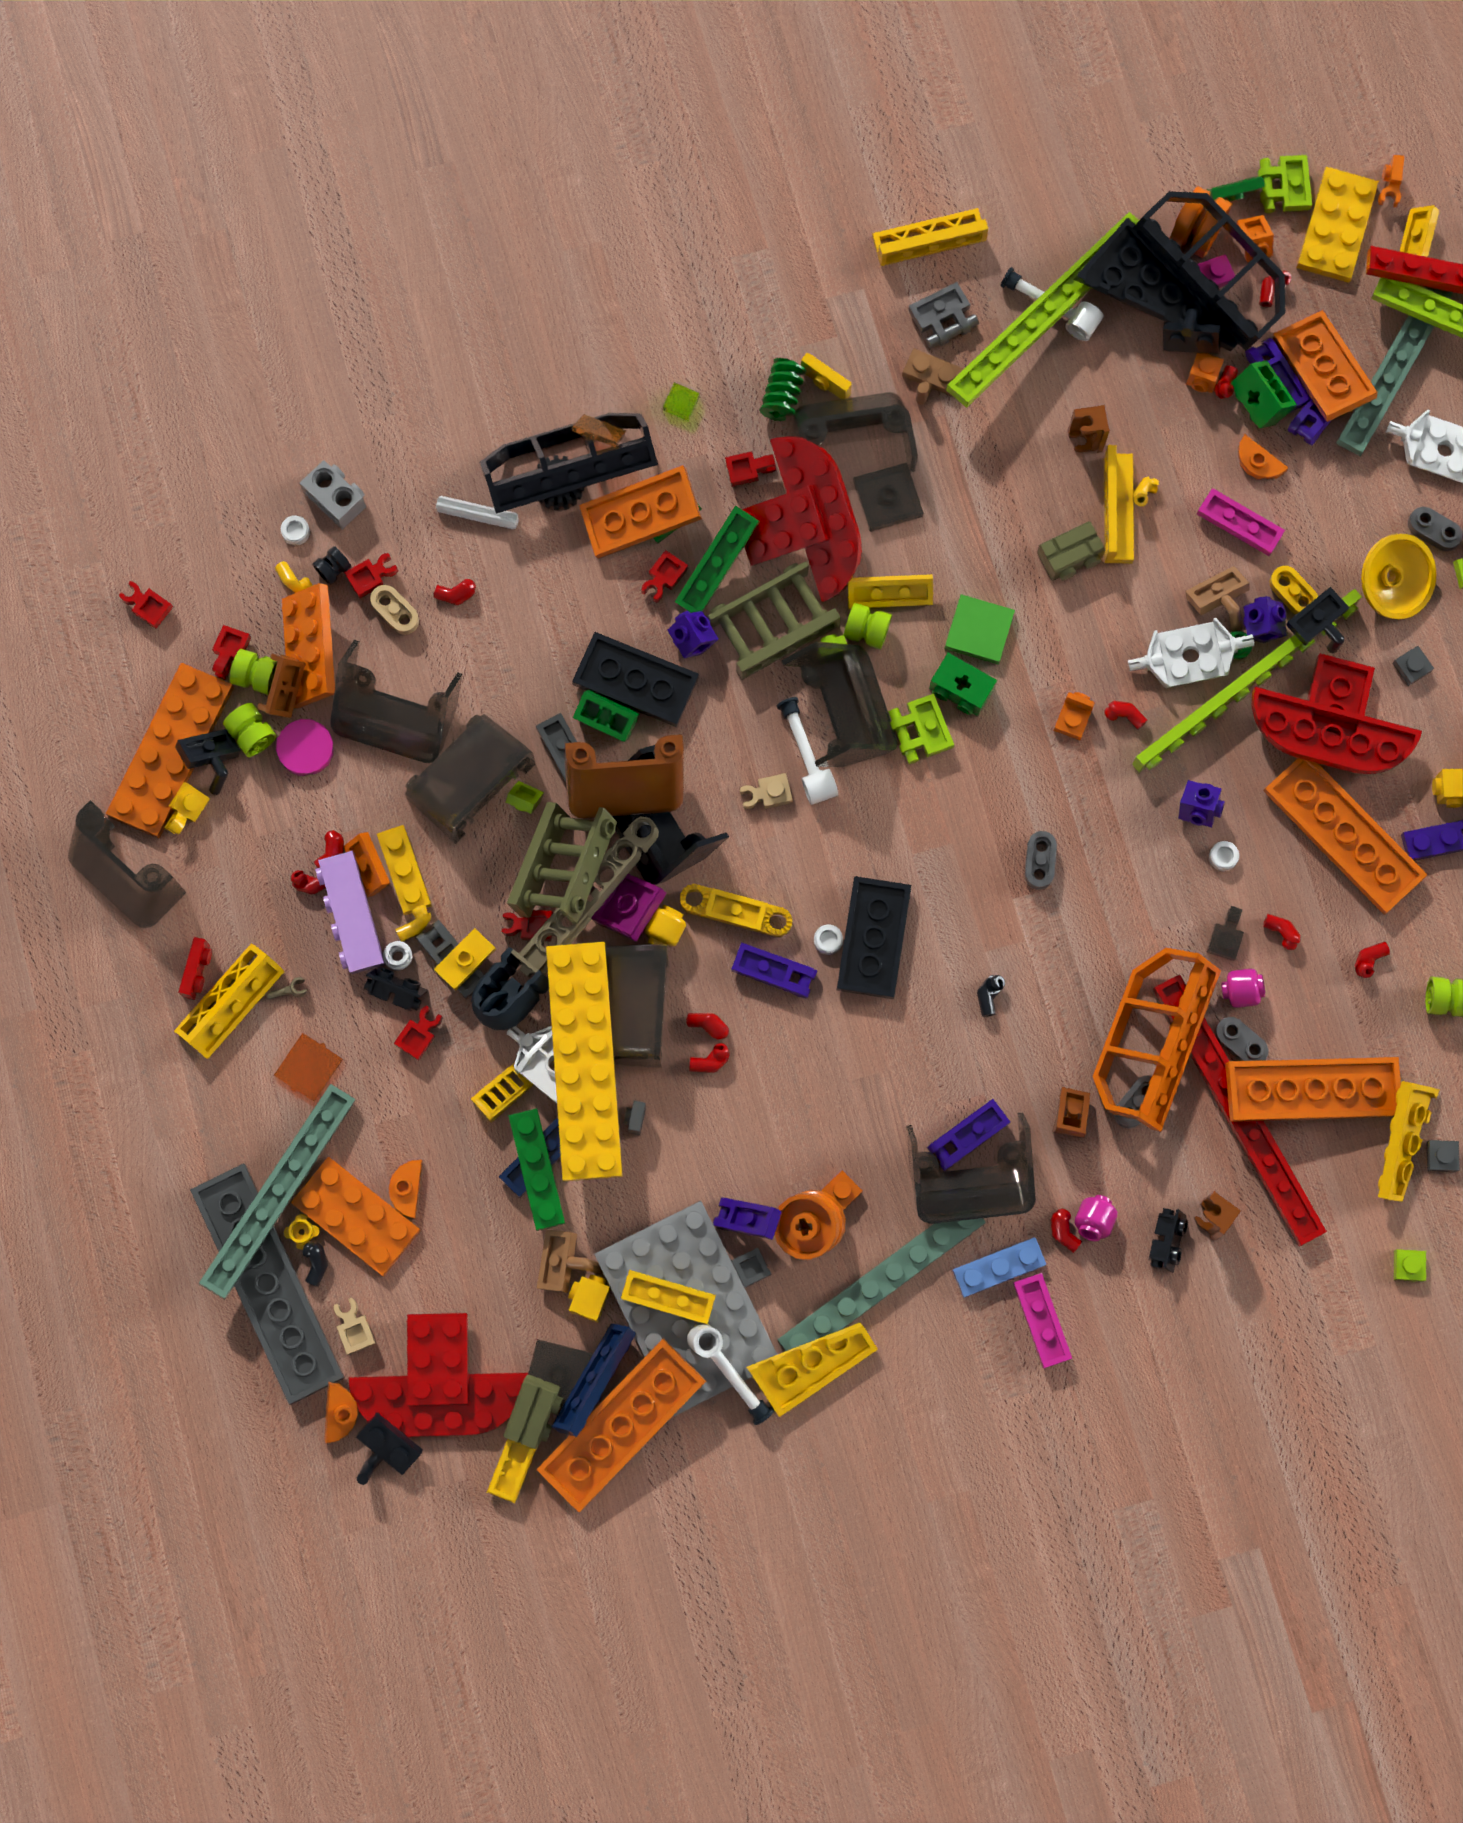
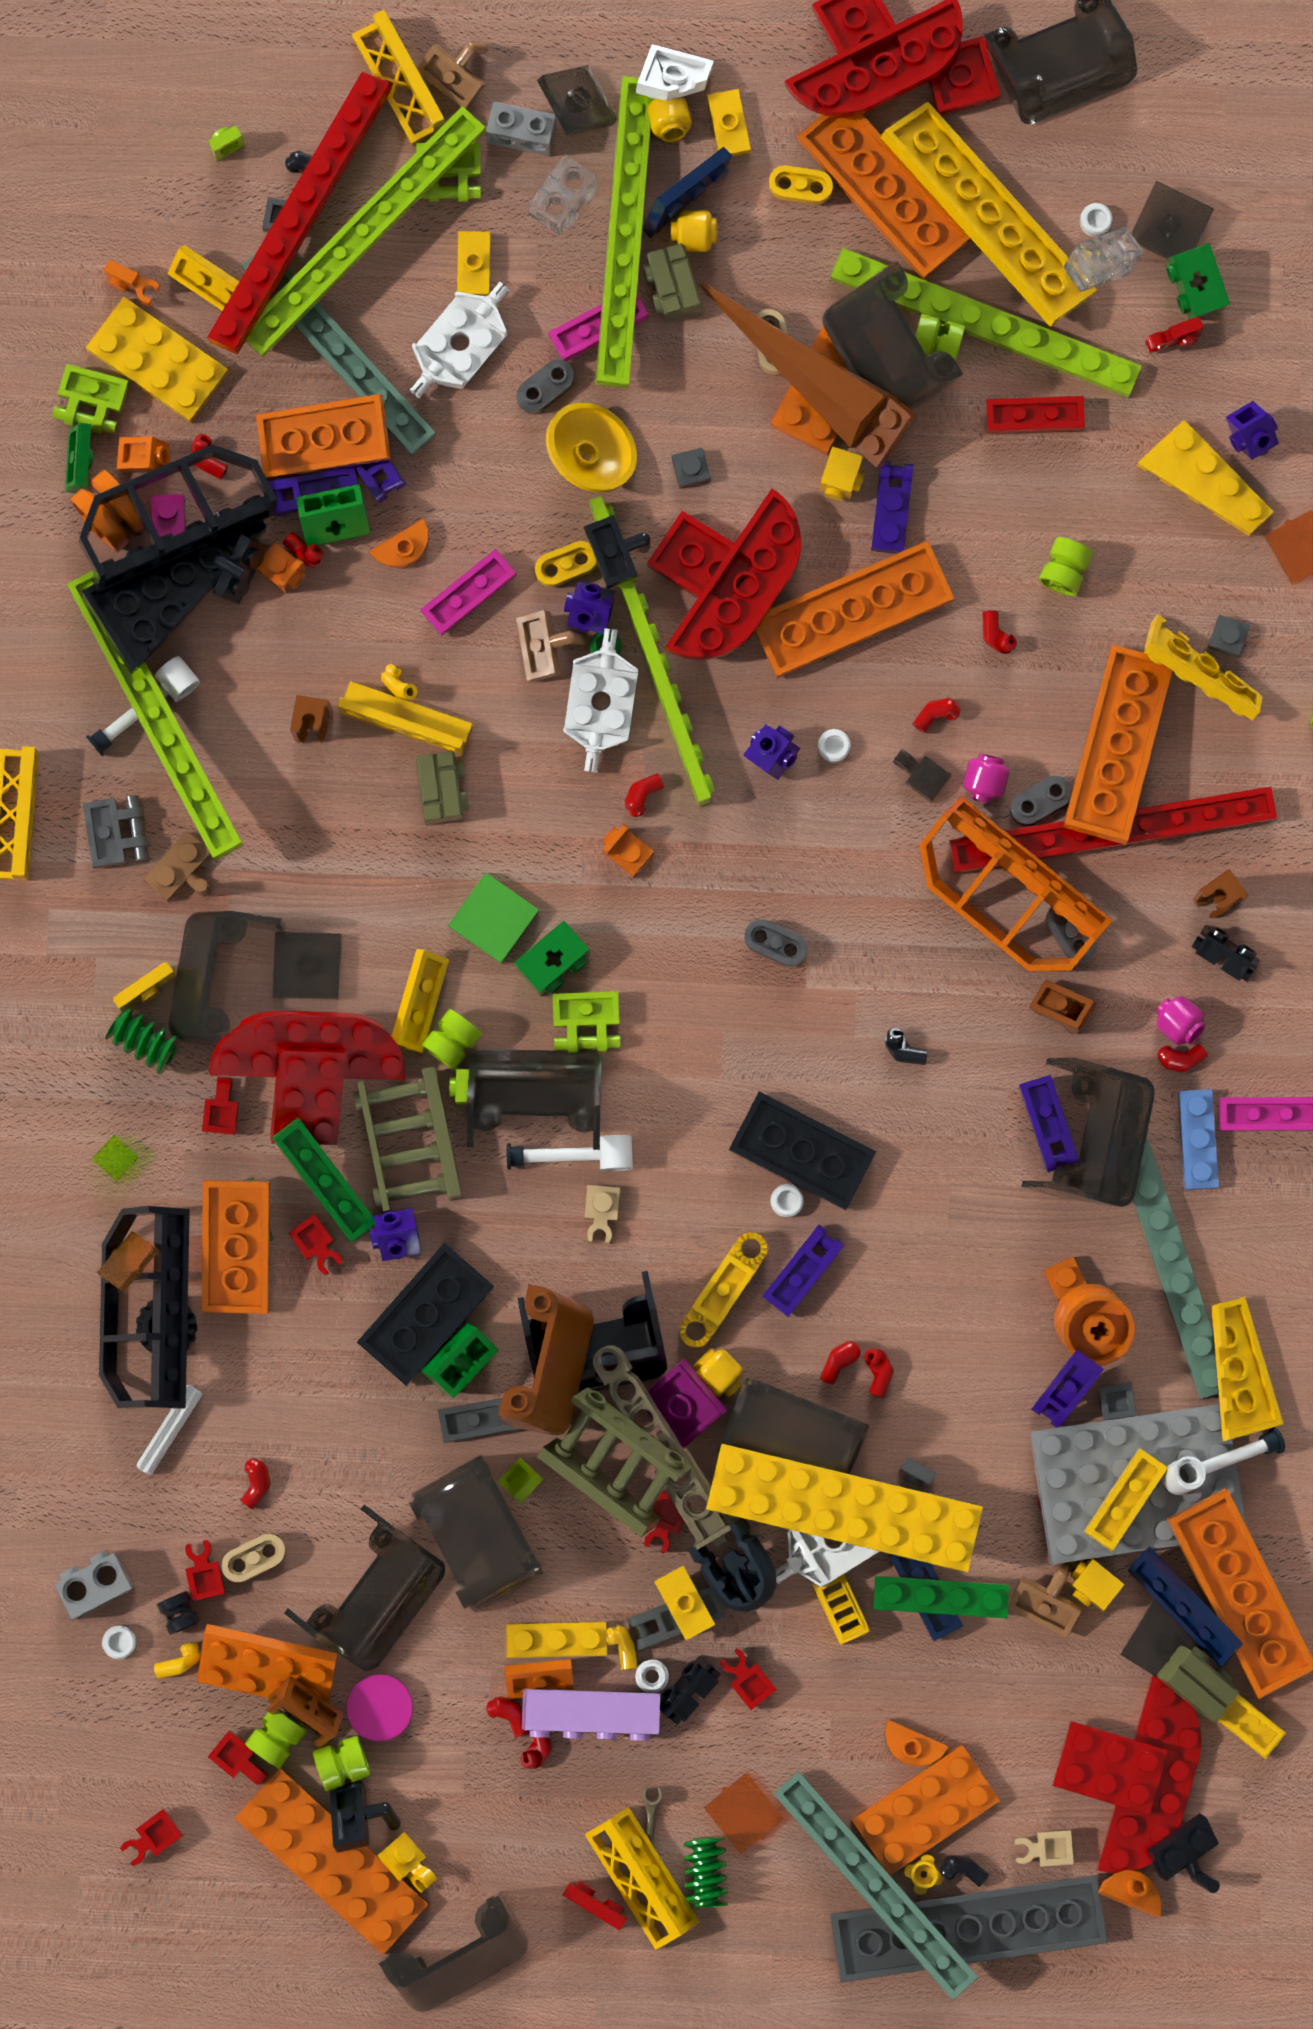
camera: 70 degrees left, 5 degrees up
(248, 1048) = (705, 1872): none -> green piece

